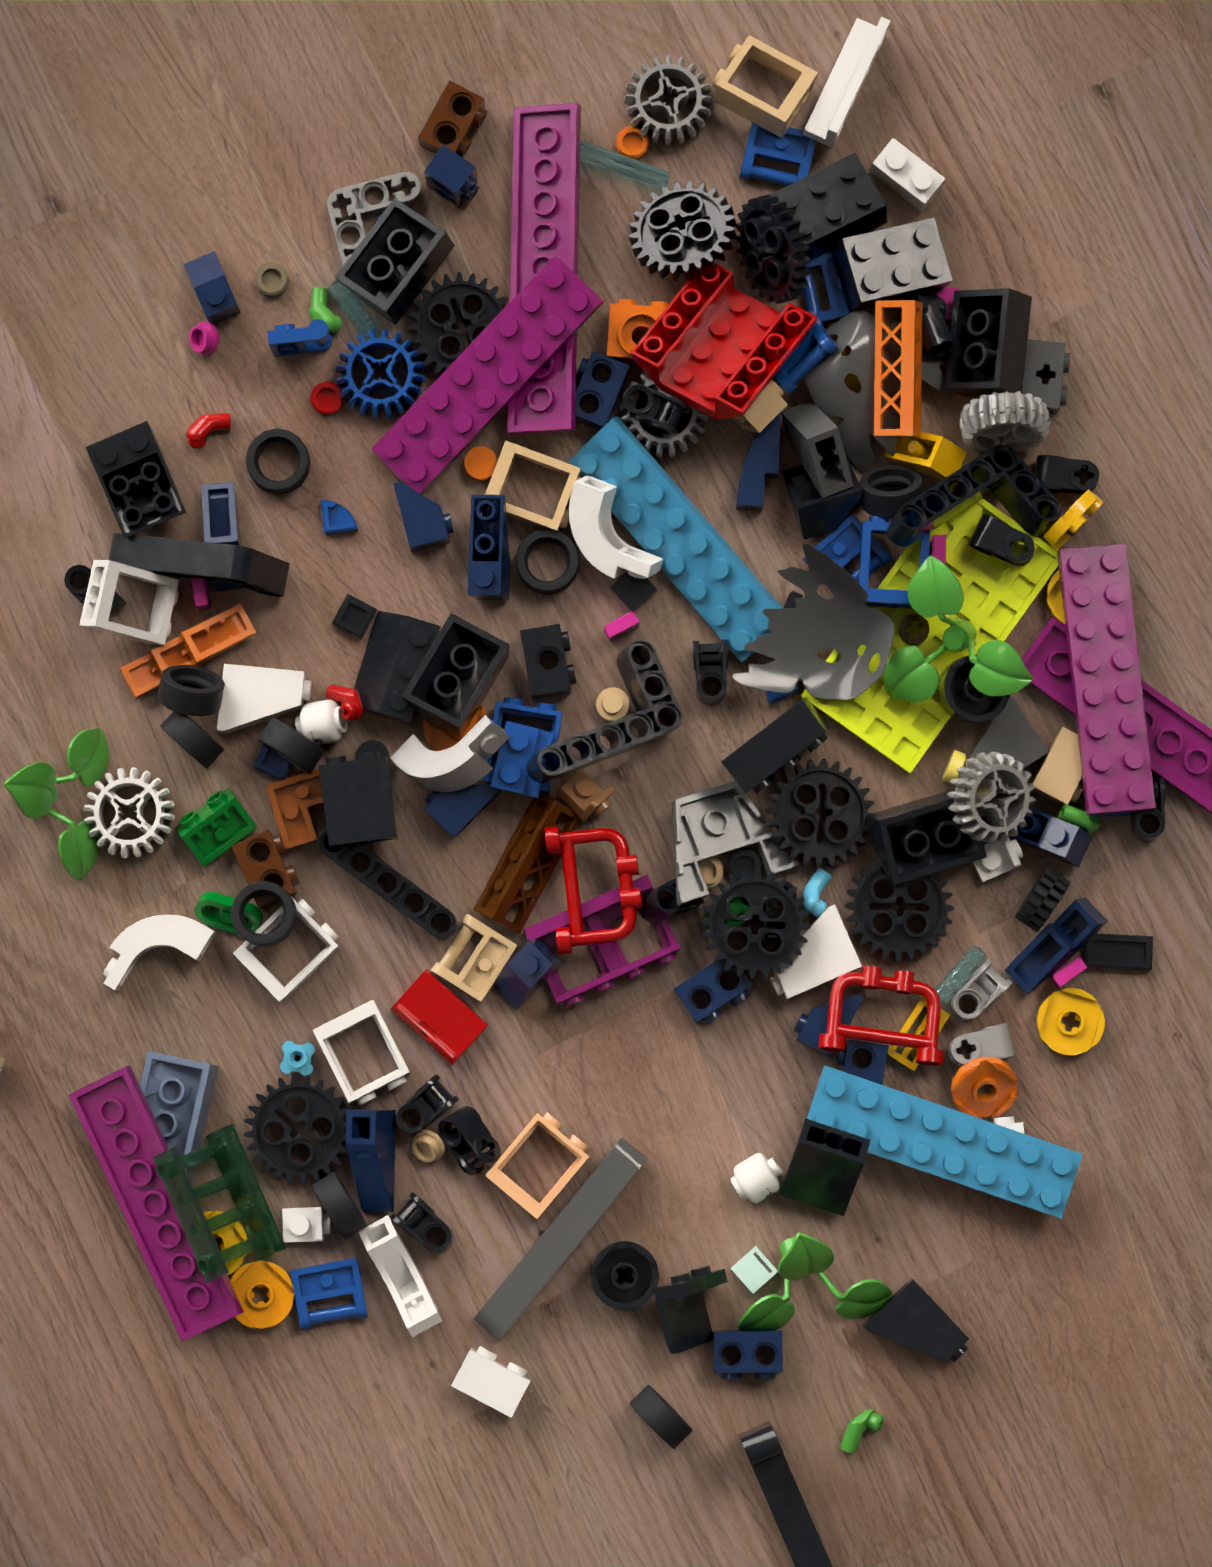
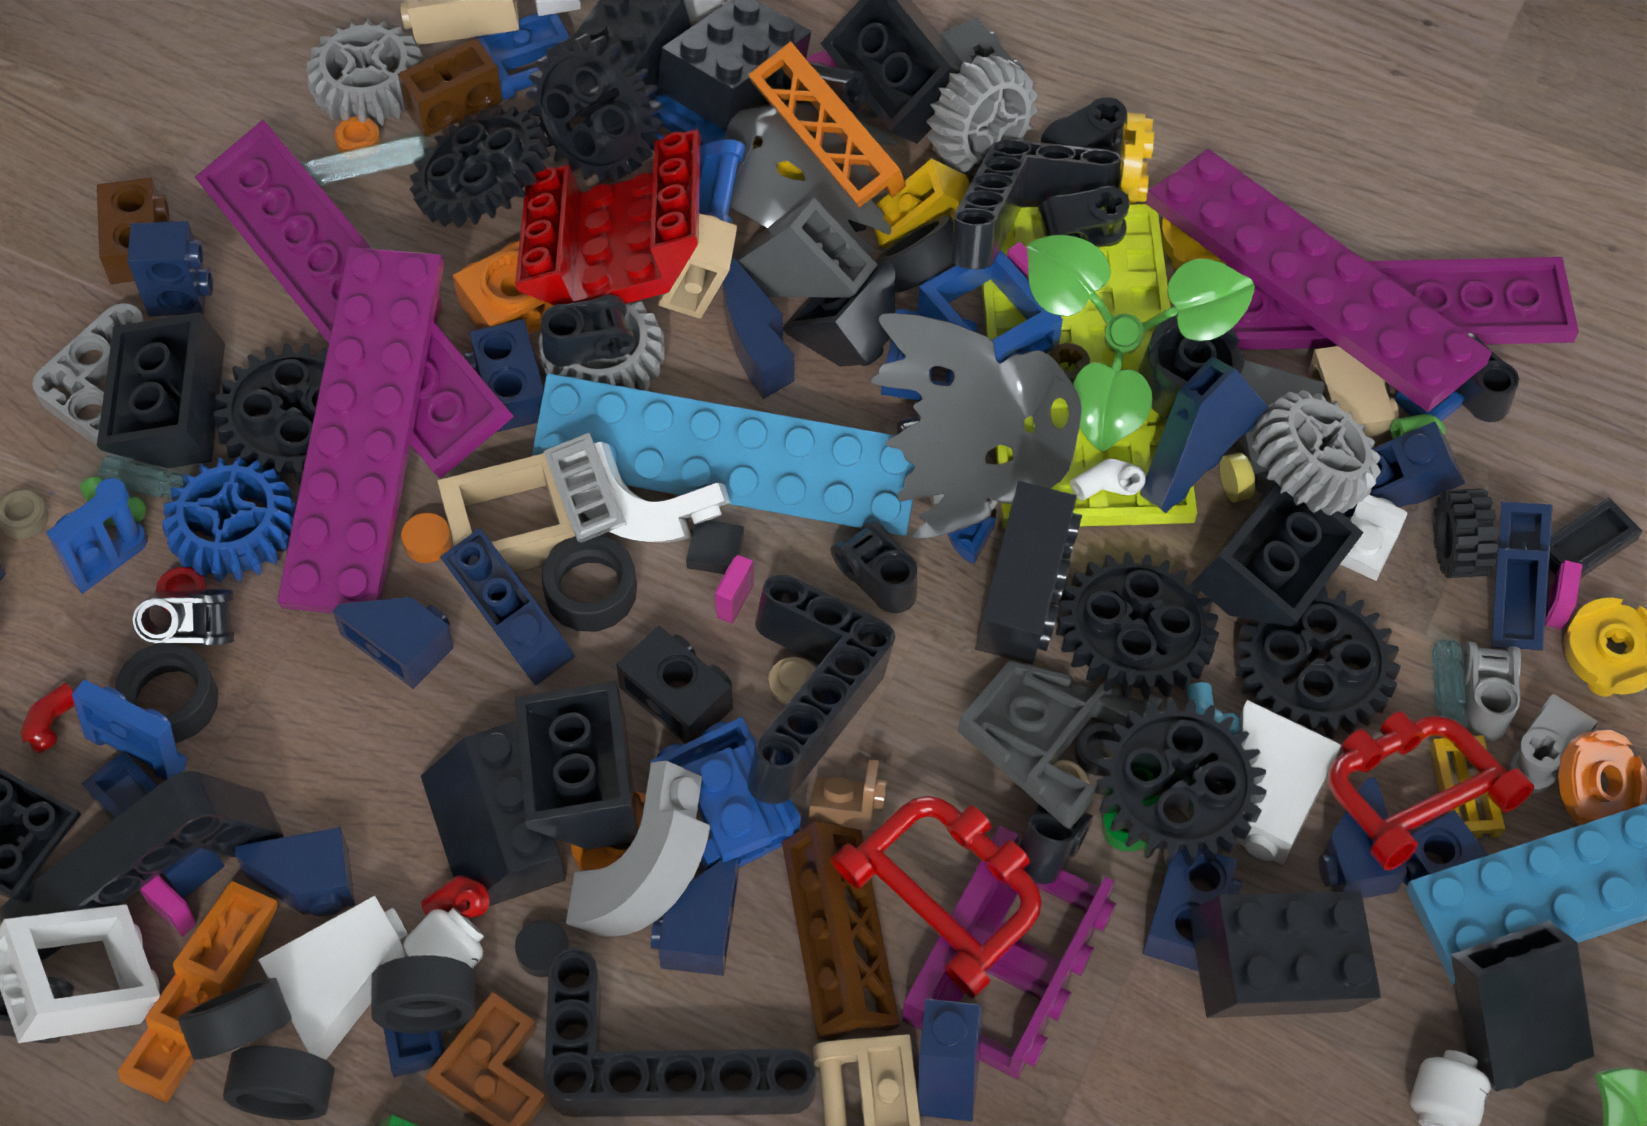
camera: 40 degrees left, 25 degrees down
(247, 487) = (138, 732): none -> blue plate
(281, 626) = (302, 870): none -> dark blue slope
(316, 424) = (196, 616): none -> black piece
(336, 518) = (290, 710): blue tile -> none
(354, 616) = (394, 803): black tile -> none
(358, 800) = (565, 992): black brick -> none
(561, 525) = (599, 525): none -> light grey slope
(707, 155) = (450, 87): none -> reddish brown brick
(730, 1051) = (1284, 954): none -> black brick
(877, 716) = (1109, 476): none -> white arm
(941, 735) = (1201, 427): none -> dark blue slope

